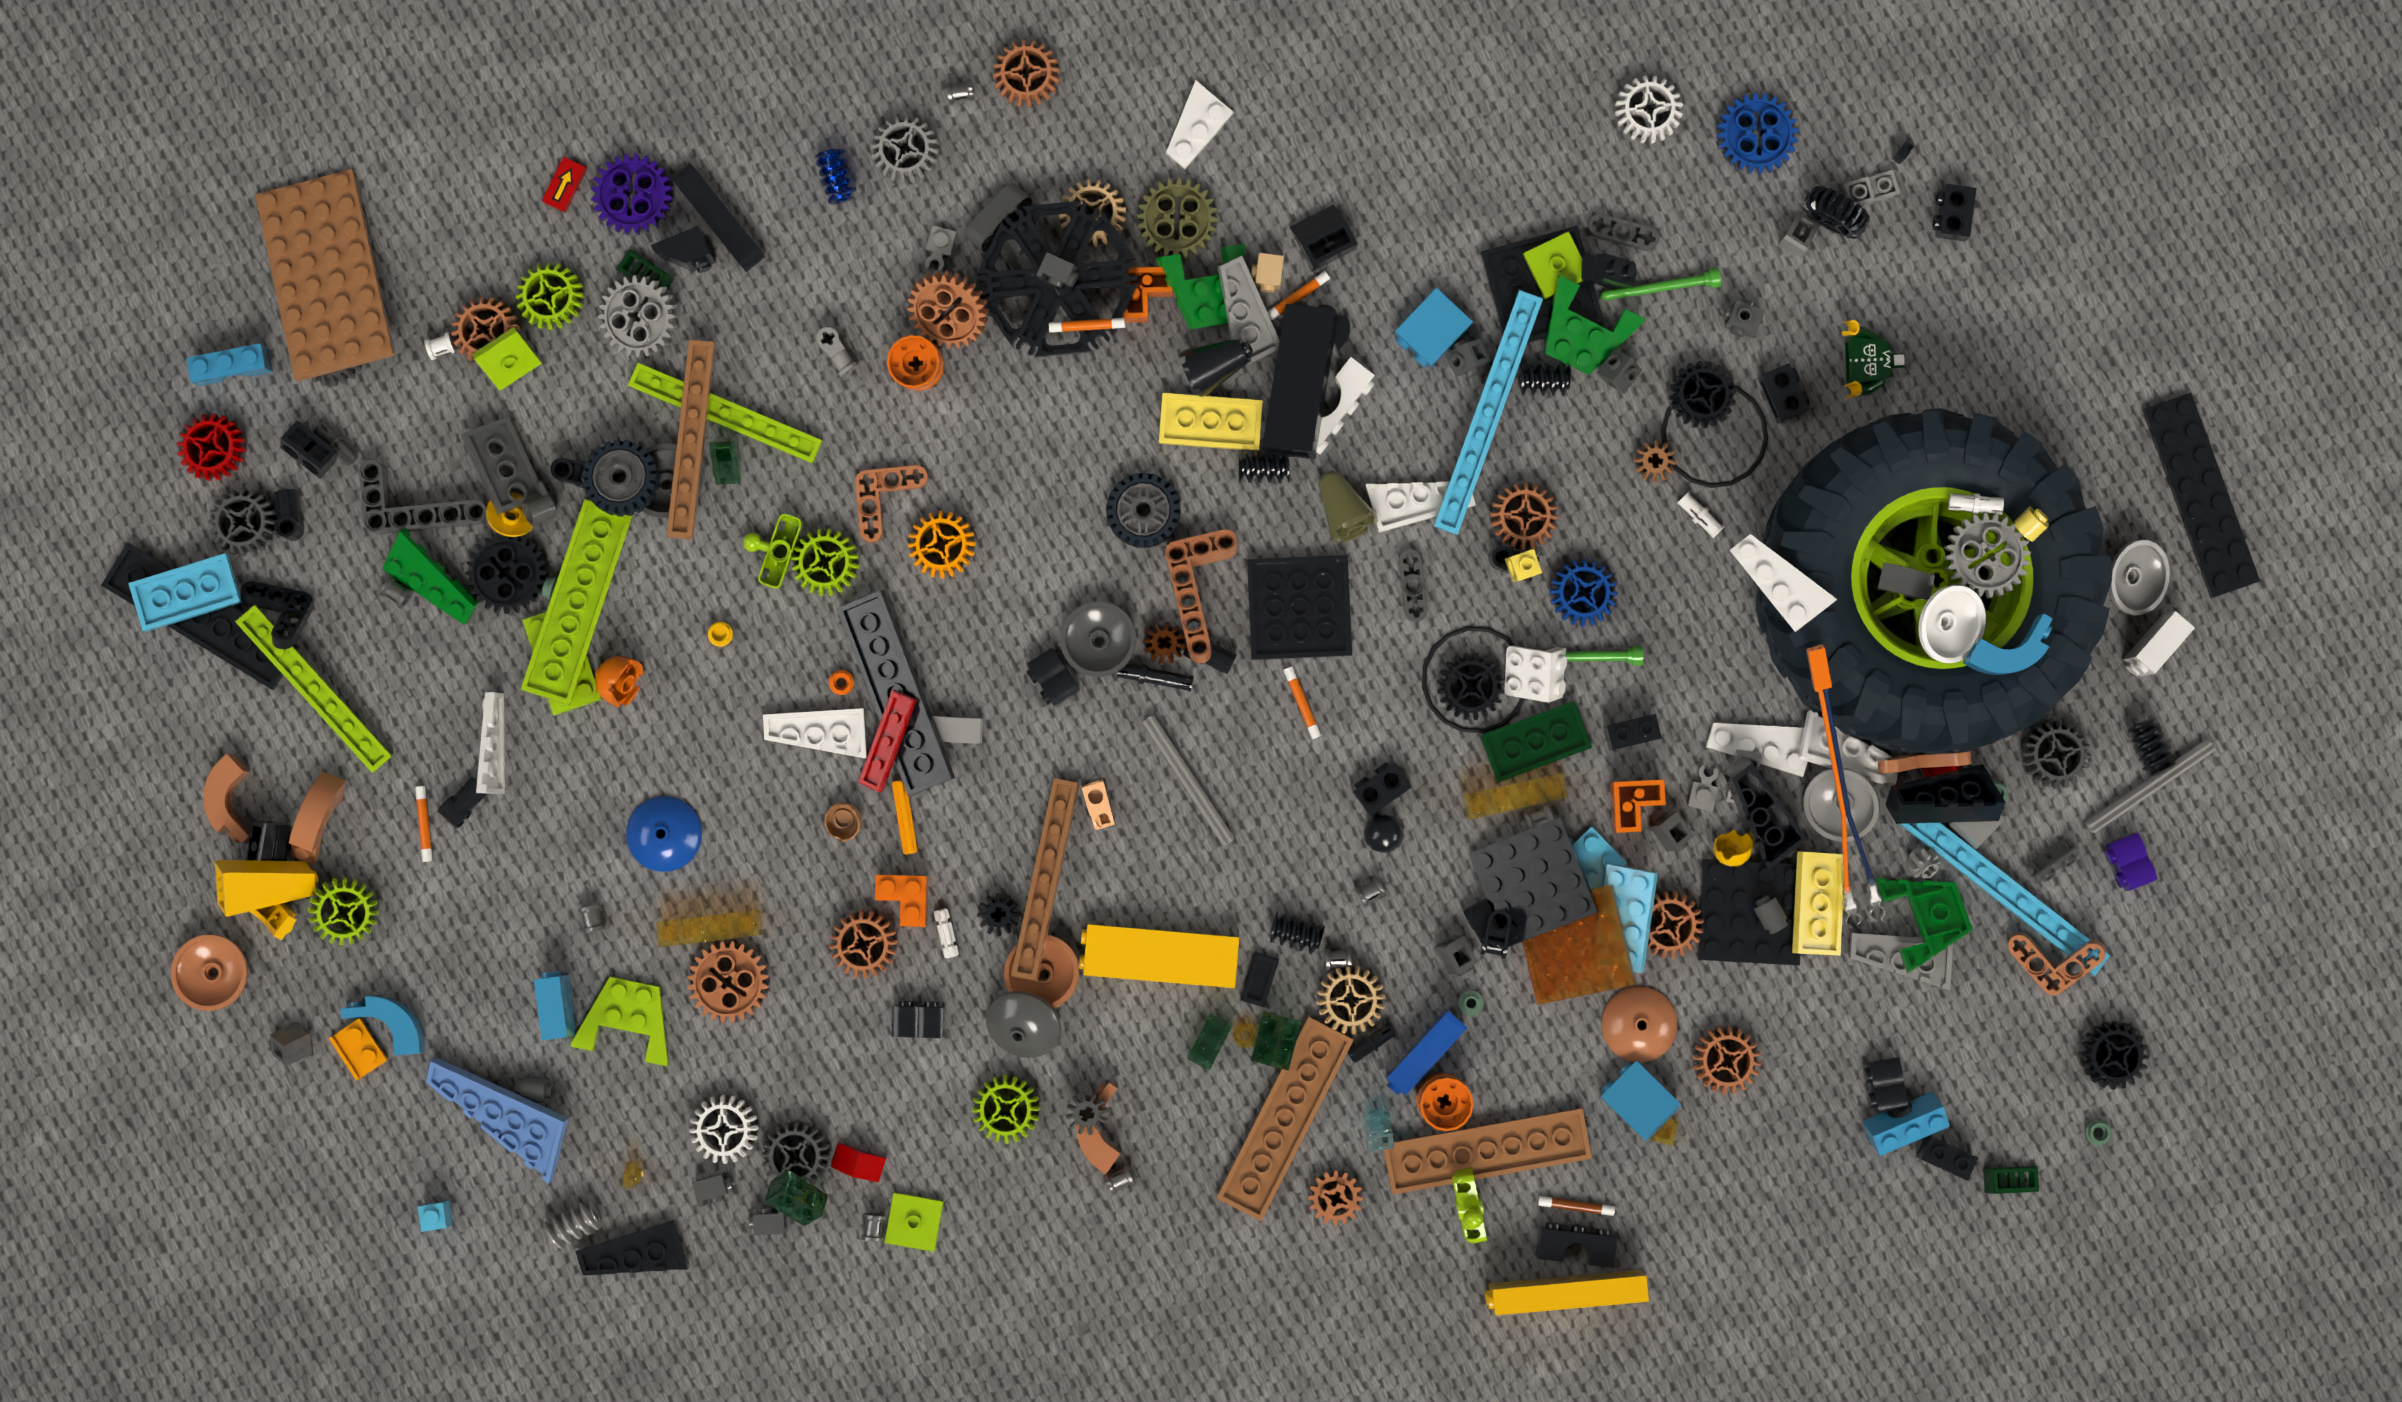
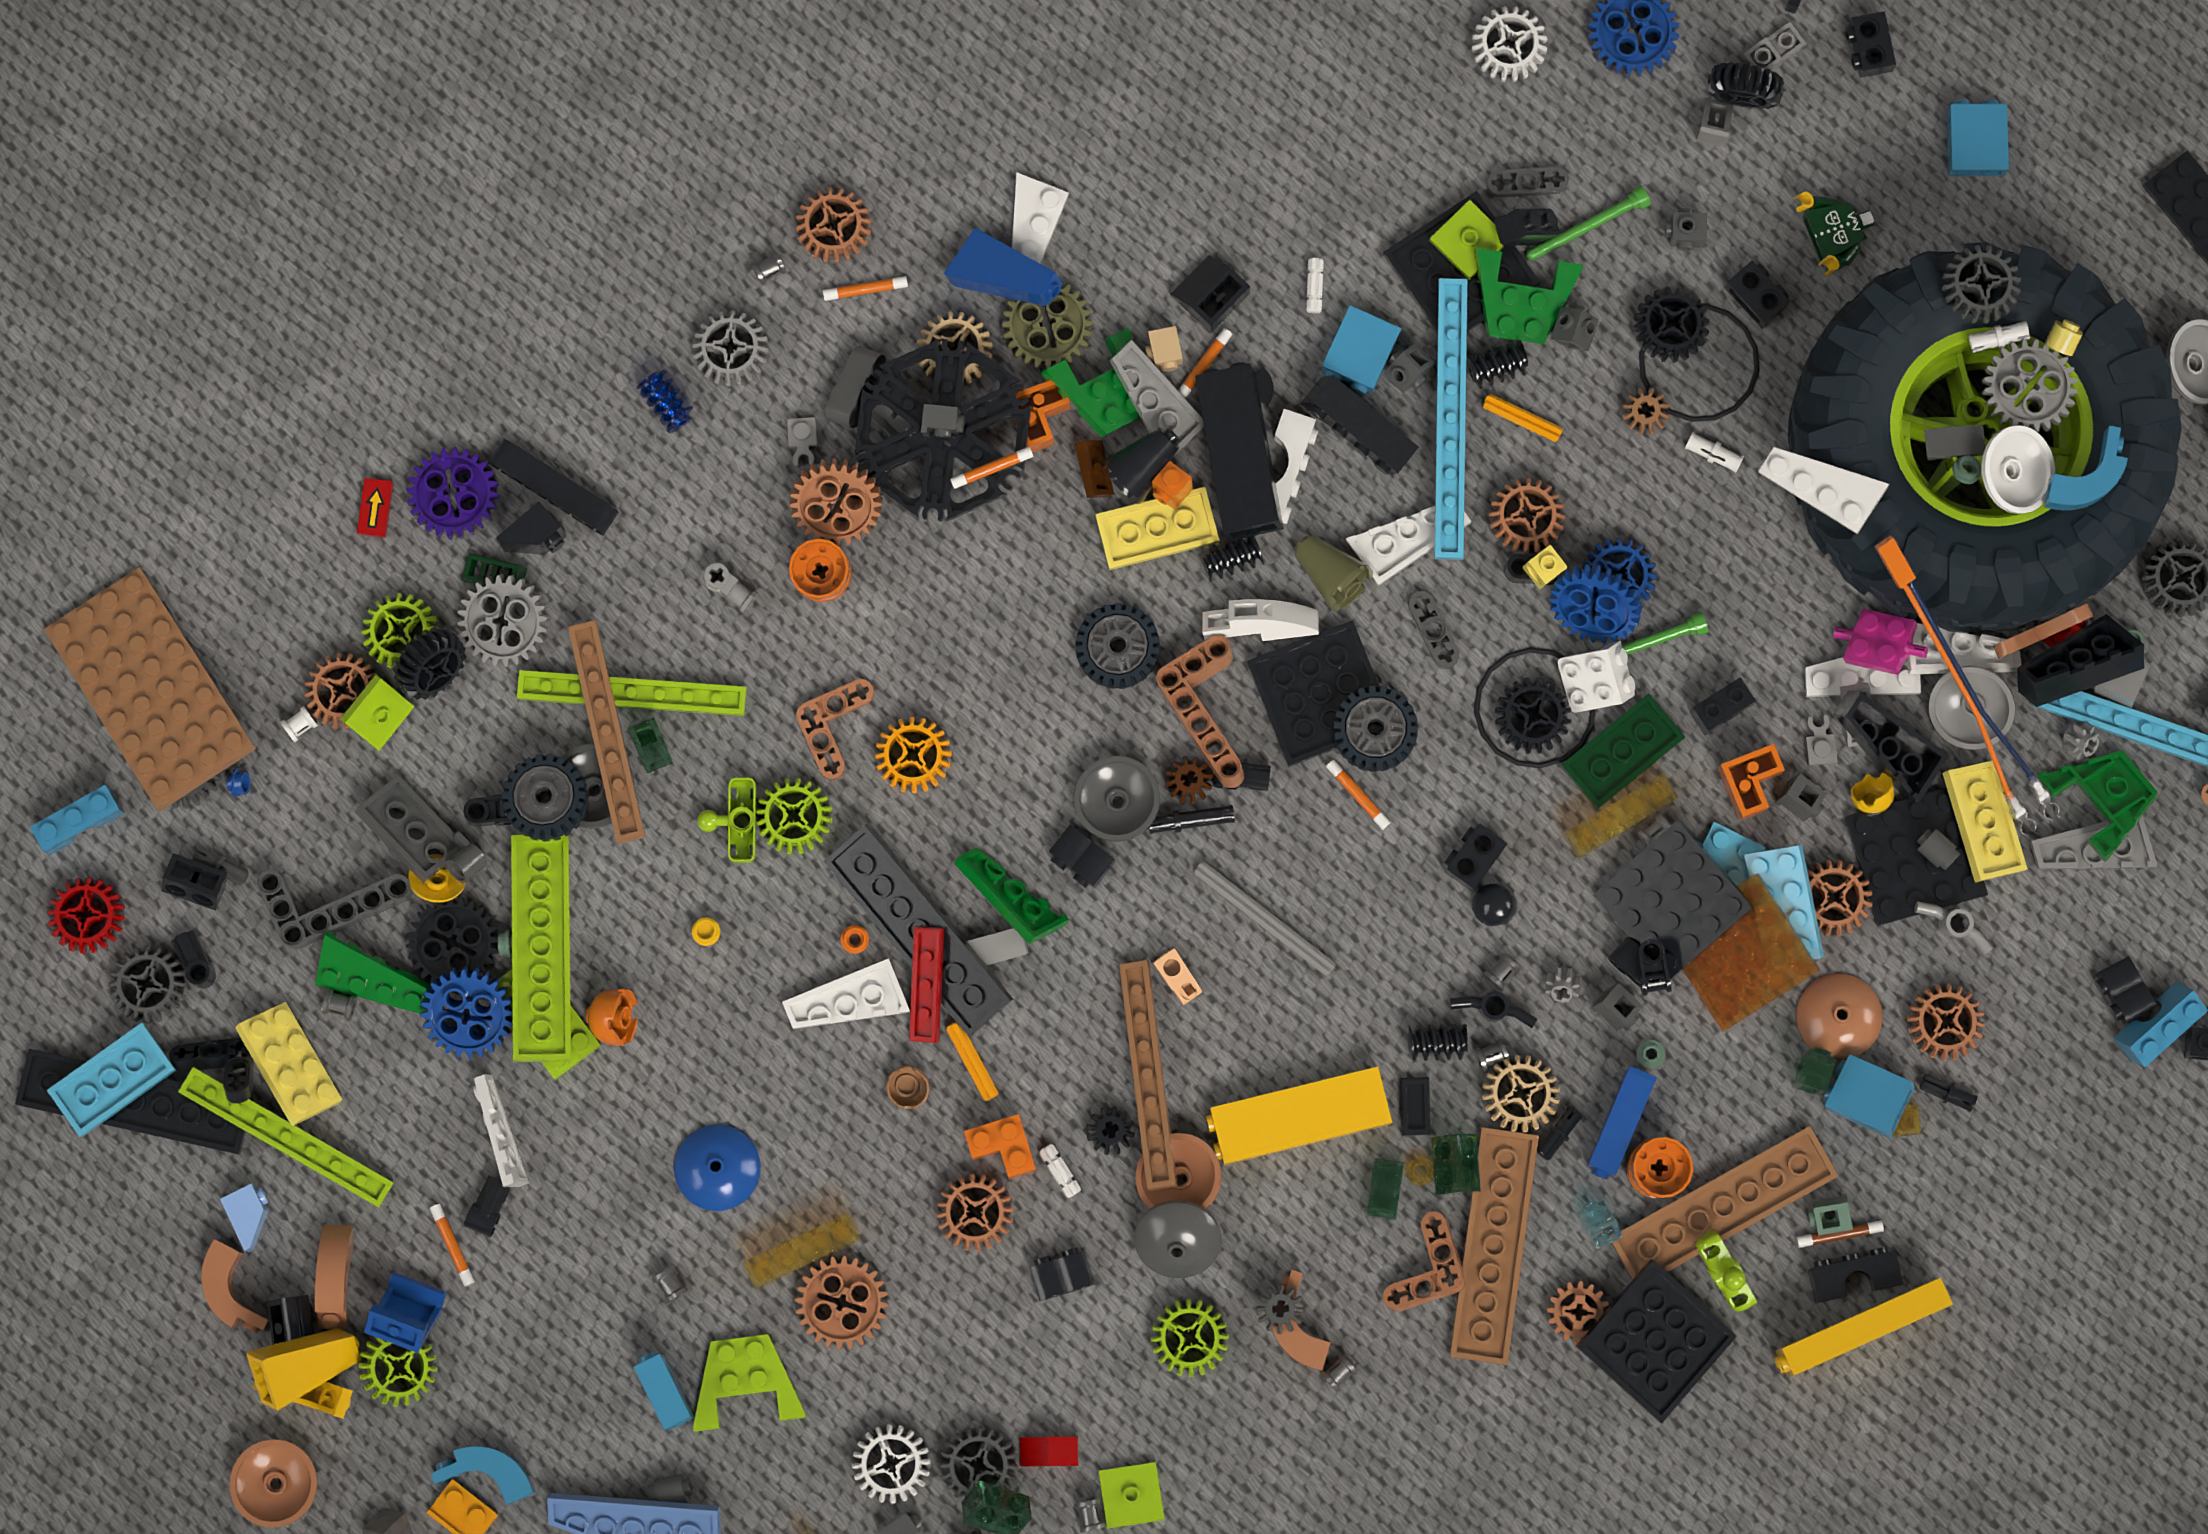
camera: 20 degrees left, 5 degrees down
(261, 741) = (247, 1213): none -> light blue slope
(337, 628) = (288, 1063): none -> light yellow plate
(363, 869) = (405, 1312): none -> blue panel
(374, 378) = (238, 783): none -> blue plate
(507, 617) = (471, 988): none -> blue gear
(563, 332) = (429, 663): none -> black gear
(987, 705) = (1009, 896): none -> green wing
(1035, 136) = (865, 288): none -> orange bar
(1153, 160) = (1001, 271): none -> blue slope
(1174, 342) = (1094, 477): none -> reddish brown plate
(1226, 1128) = (1436, 1276): none -> nougat beam
(1233, 390) = (1172, 485): none -> orange brick
(1277, 529) = (1255, 616): none -> white slope
(1343, 912) = (1508, 1010): none -> black piece
(1354, 648) = (1378, 706): none -> wheel
(1391, 1244) = (1656, 1341): none -> black plate
(1410, 392) = (1359, 424): none -> black wedge
(1413, 260) = (1314, 285): none -> white axle
(1417, 920) = (1563, 984): none -> light grey gear
(1539, 602) = (1615, 606): none -> blue gear
(1549, 431) = (1522, 417): none -> light orange axle
(1578, 1196) = (1838, 1222): none -> sand green brick
(1602, 1065) = (1814, 1071): none -> clear green brick
(1708, 1119) = (1948, 1092): none -> black axle
(1756, 973) = (1944, 923): none -> light grey piece
(1784, 723) = (1880, 642): none -> dark pink plate
(1913, 606) = (1970, 464): none -> sand green plate
(1974, 464) = (1969, 286): none -> dark grey gear
(2016, 323) = (1977, 138): none -> dark azure brick

